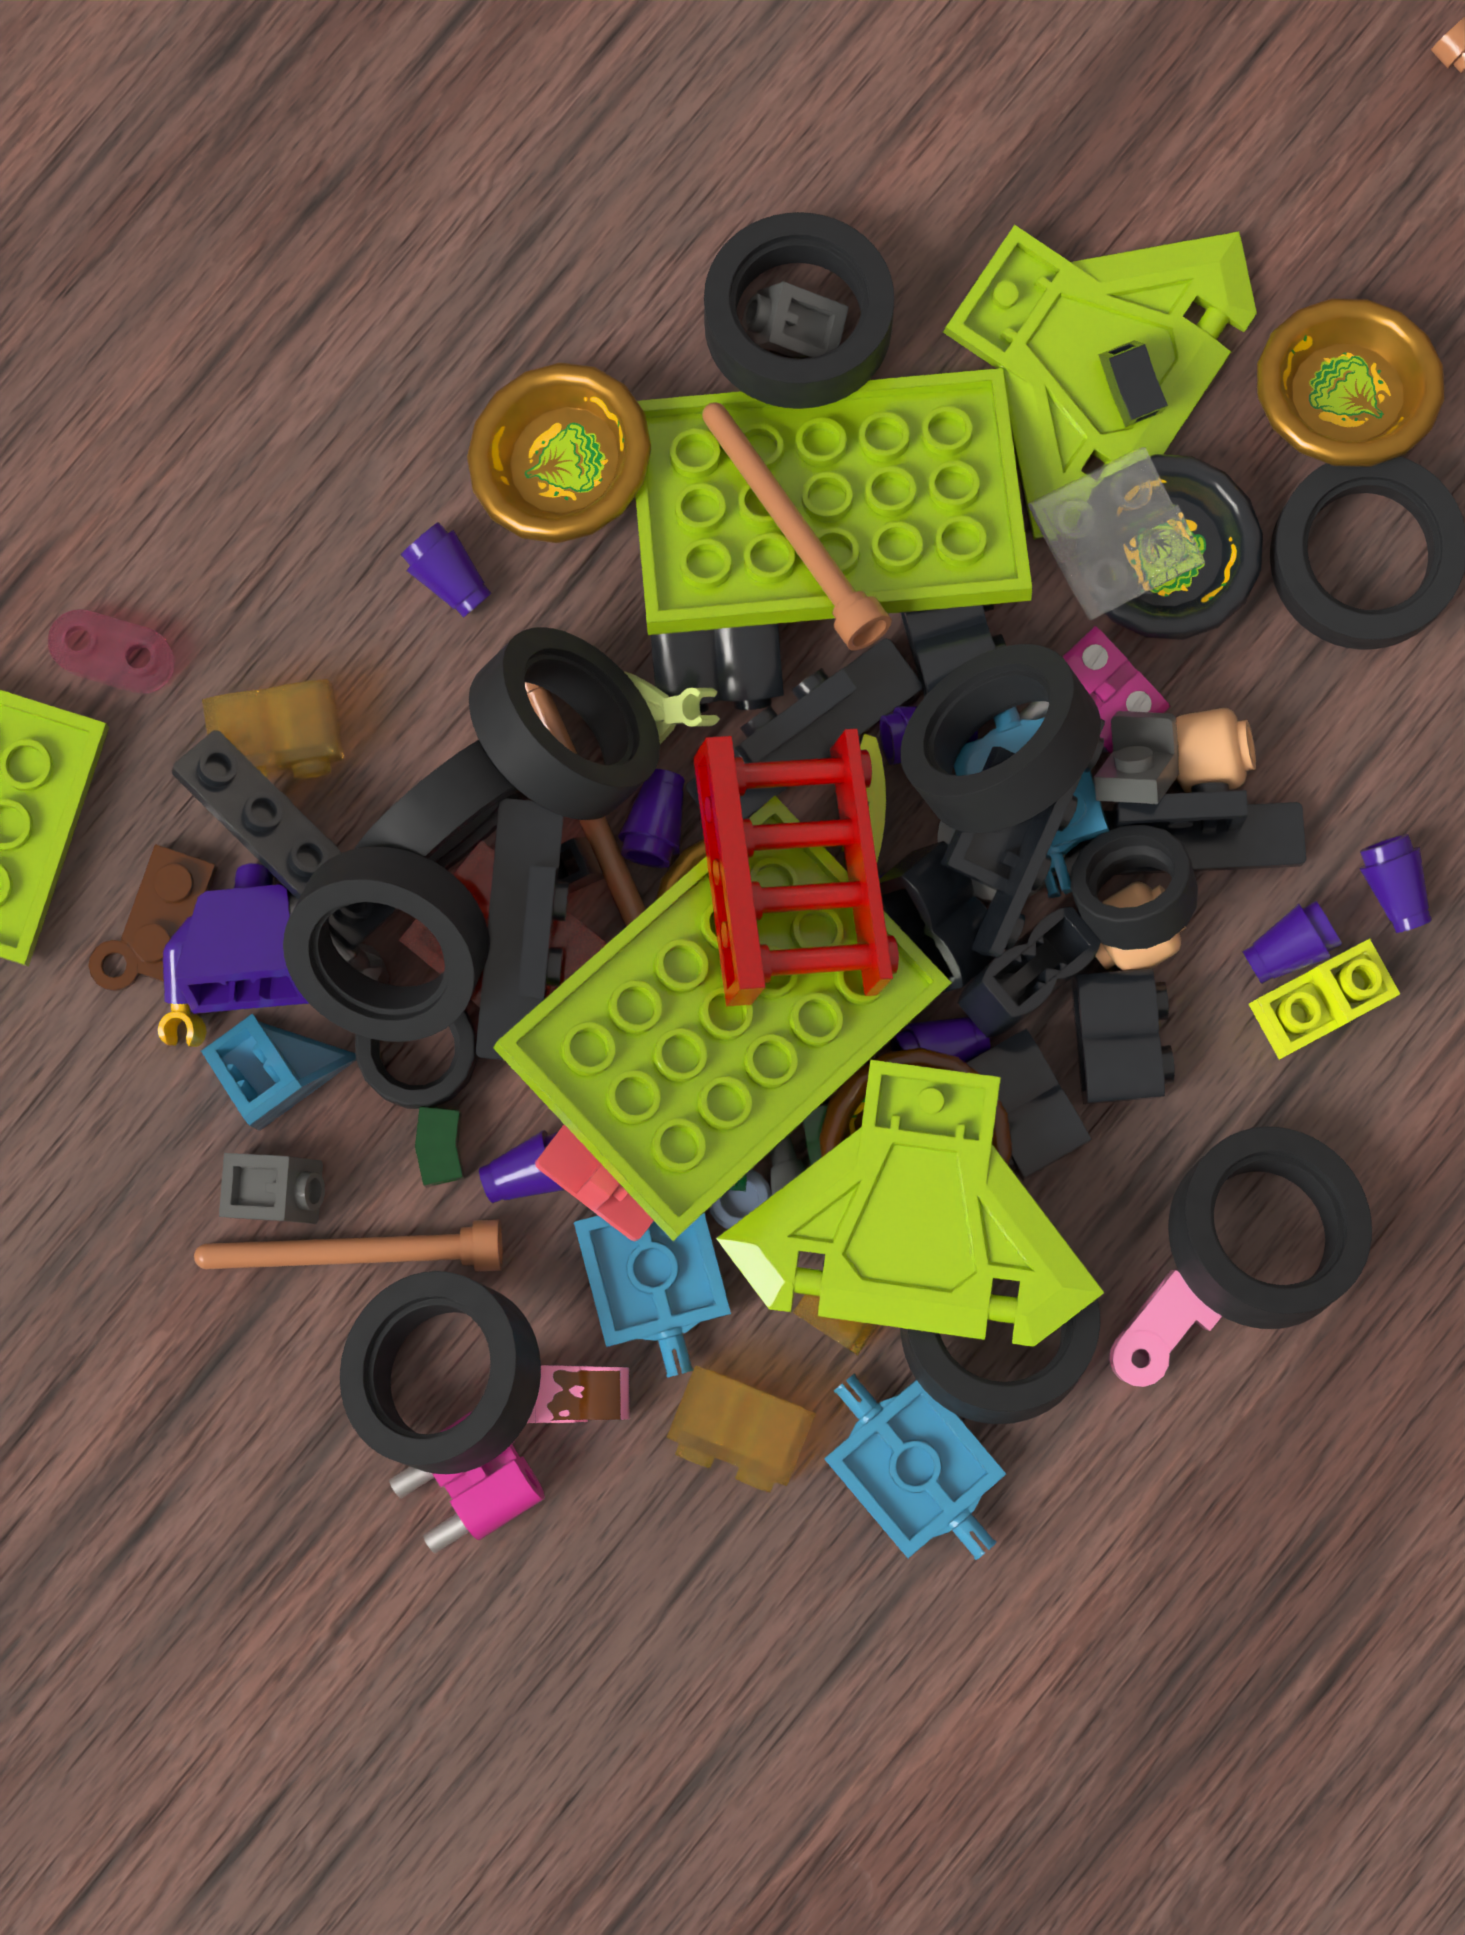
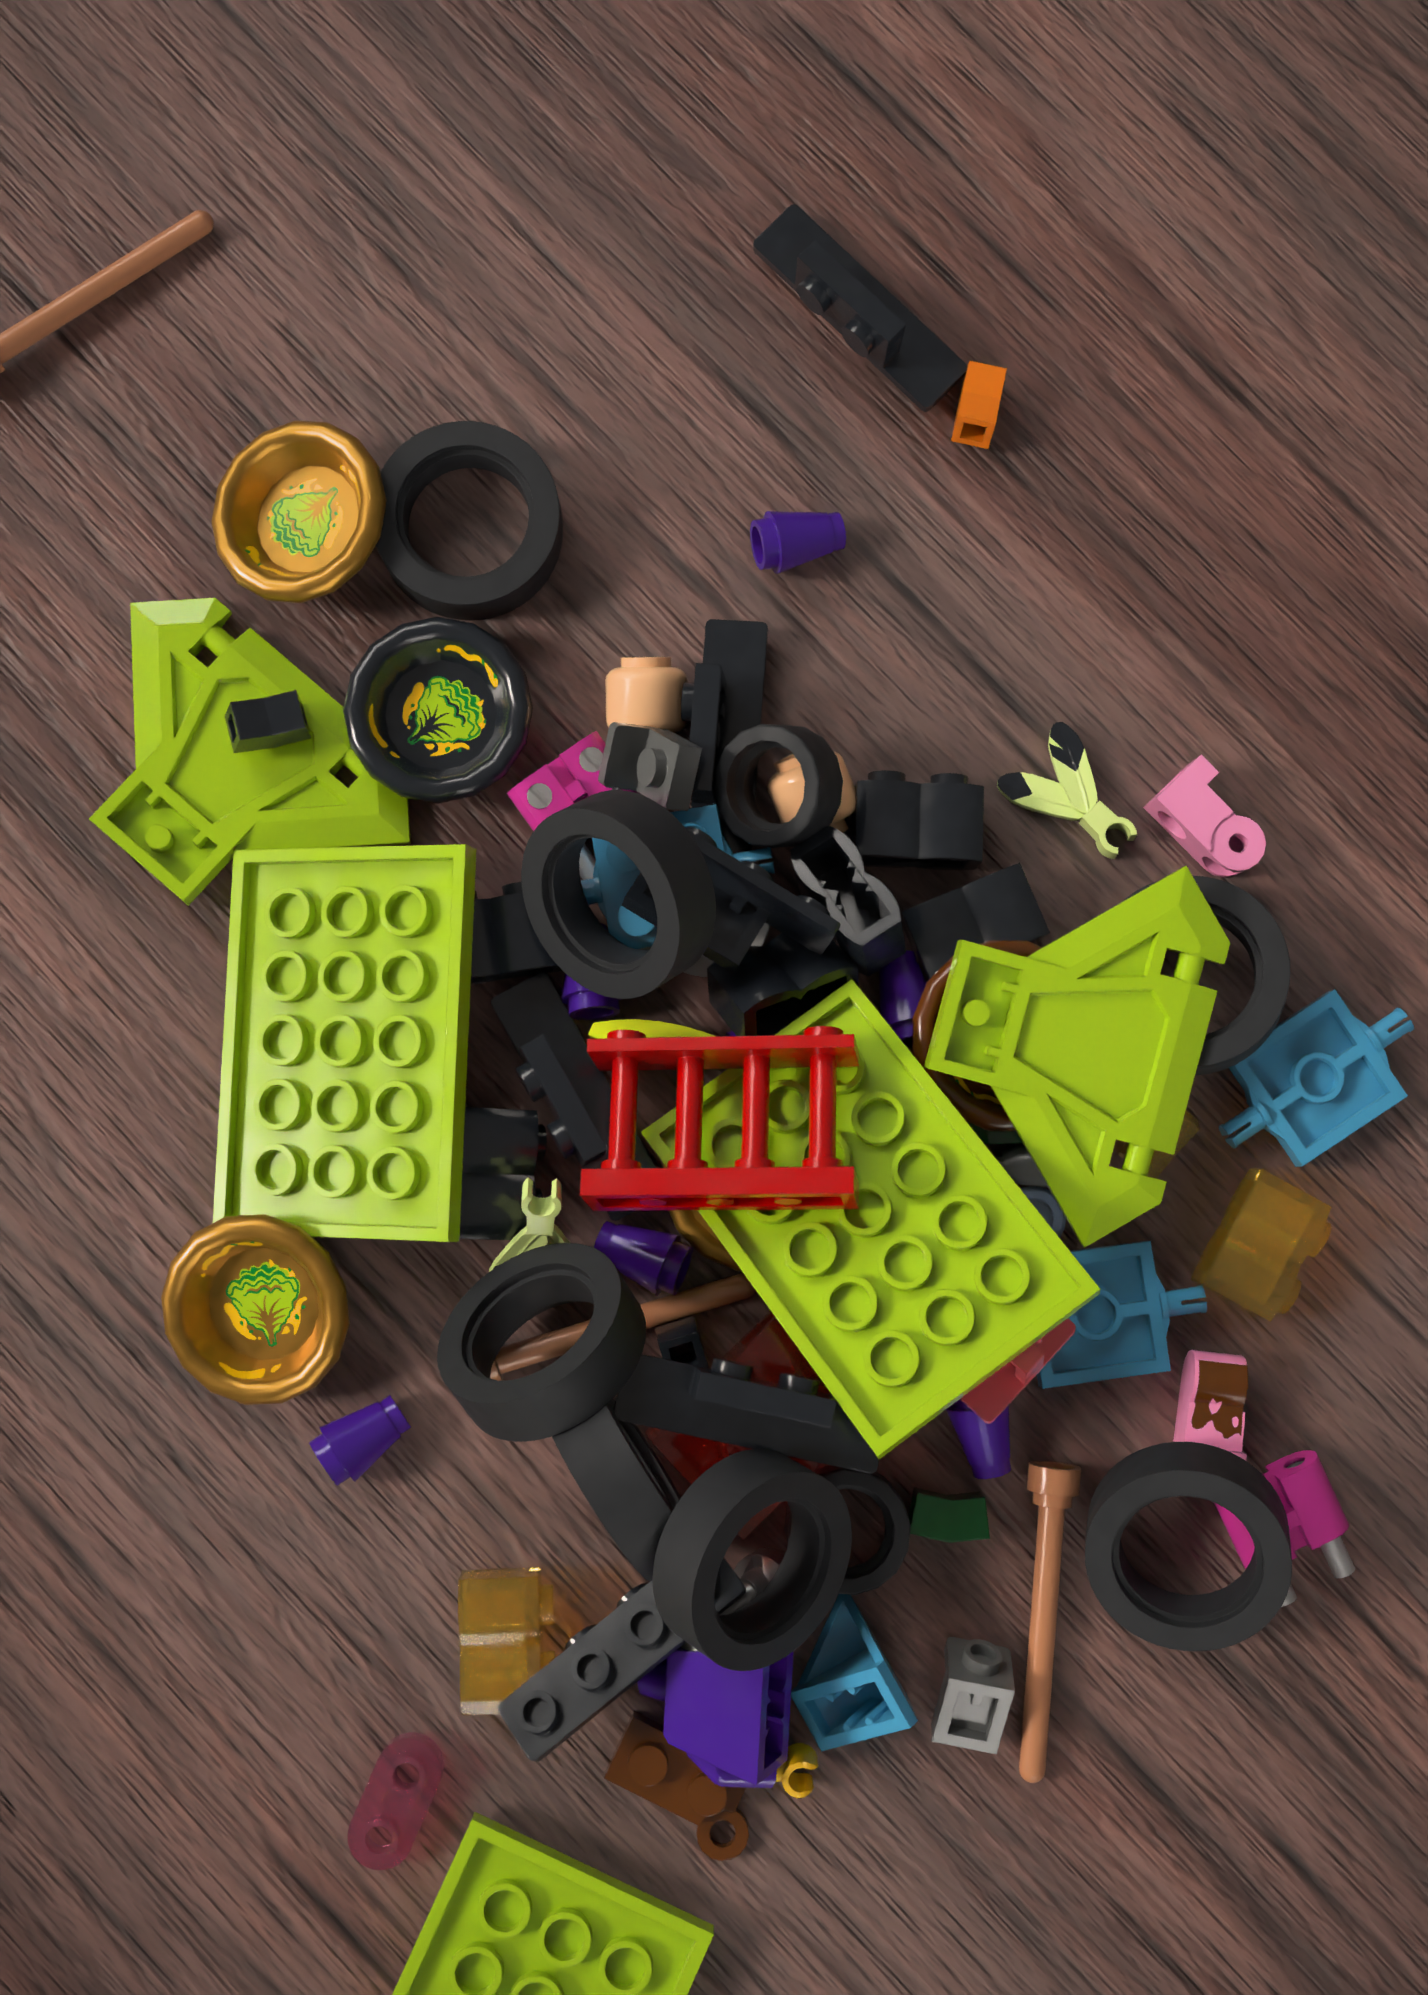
camera: 85 degrees left, 0 degrees up
(794, 321) = (157, 1052): dark grey bracket -> none
(808, 240) = (72, 1030): black tyre -> none
(858, 617) = (472, 1023): nougat piece -> none
(1116, 533) = (419, 756): clear slope -> none
(1165, 1175) = (1073, 796): none -> yellowish green piece
(1293, 943) = (844, 645): dark purple cone -> none
(1324, 999) = (900, 624): neon yellow slope -> none
(1325, 1181) = (1121, 631): black tyre -> none

